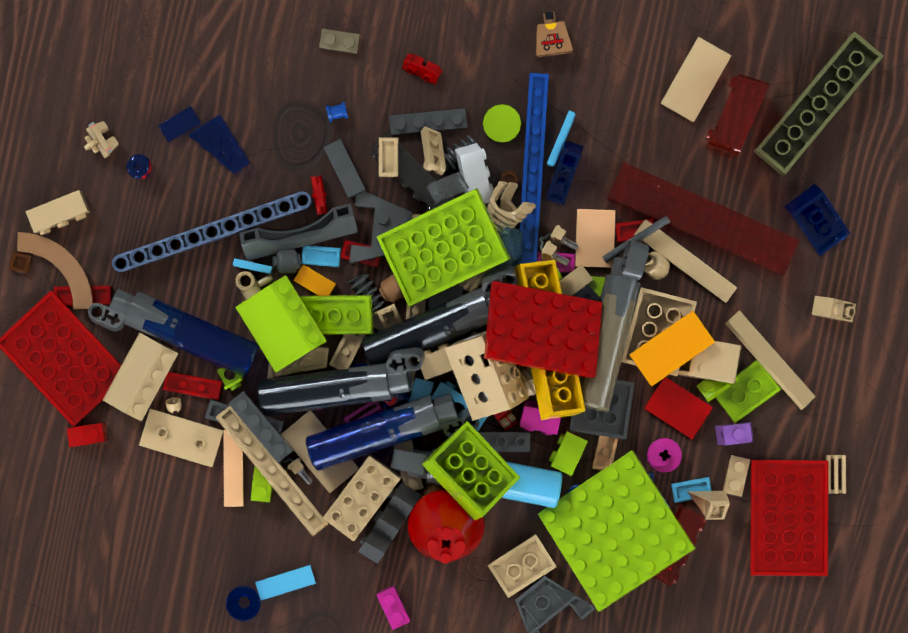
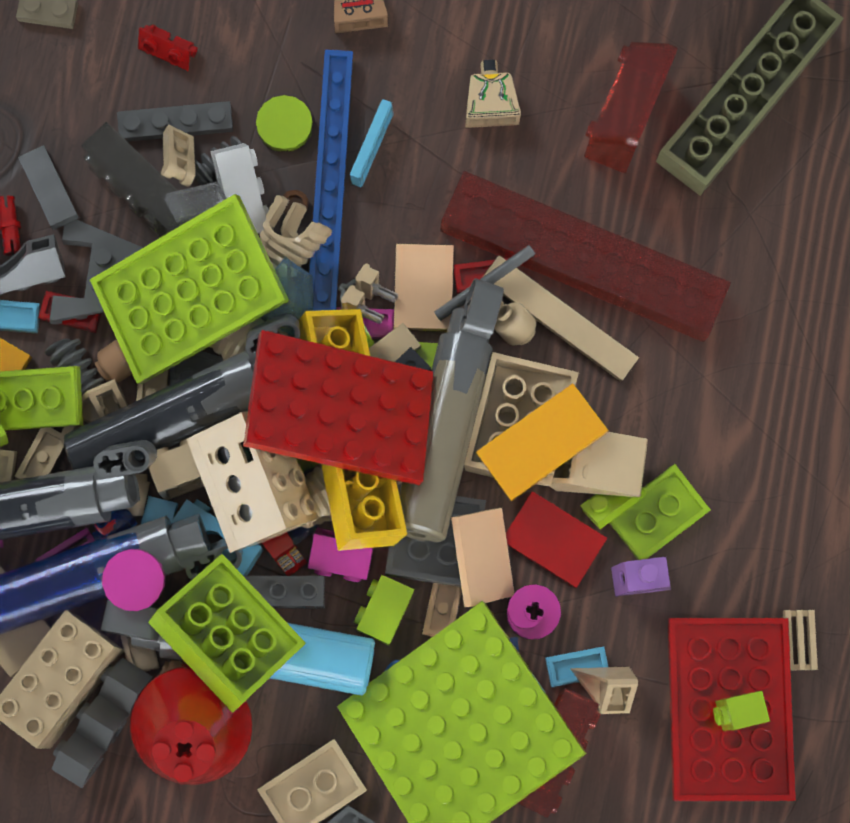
camera: 10 degrees left, 10 degrees down
(337, 112) = (39, 106): blue bush -> none
(388, 157) = (107, 158): tan tile -> none
(412, 438) = (133, 579): none -> dark pink tile
(564, 172) = (377, 191): clear blue slope -> none
(632, 420) = (482, 556): none -> light nougat tile
(642, 107) = (492, 98): none -> tan torso
(695, 79) = (568, 61): tan tile -> none
(736, 475) = (646, 643): tan plate -> none
(770, 360) = (693, 465): tan tile -> none
(794, 521) = (741, 711): none -> lime brick
(817, 219) = (755, 256): clear blue slope -> none
(833, 308) = (785, 387): tan slope -> none

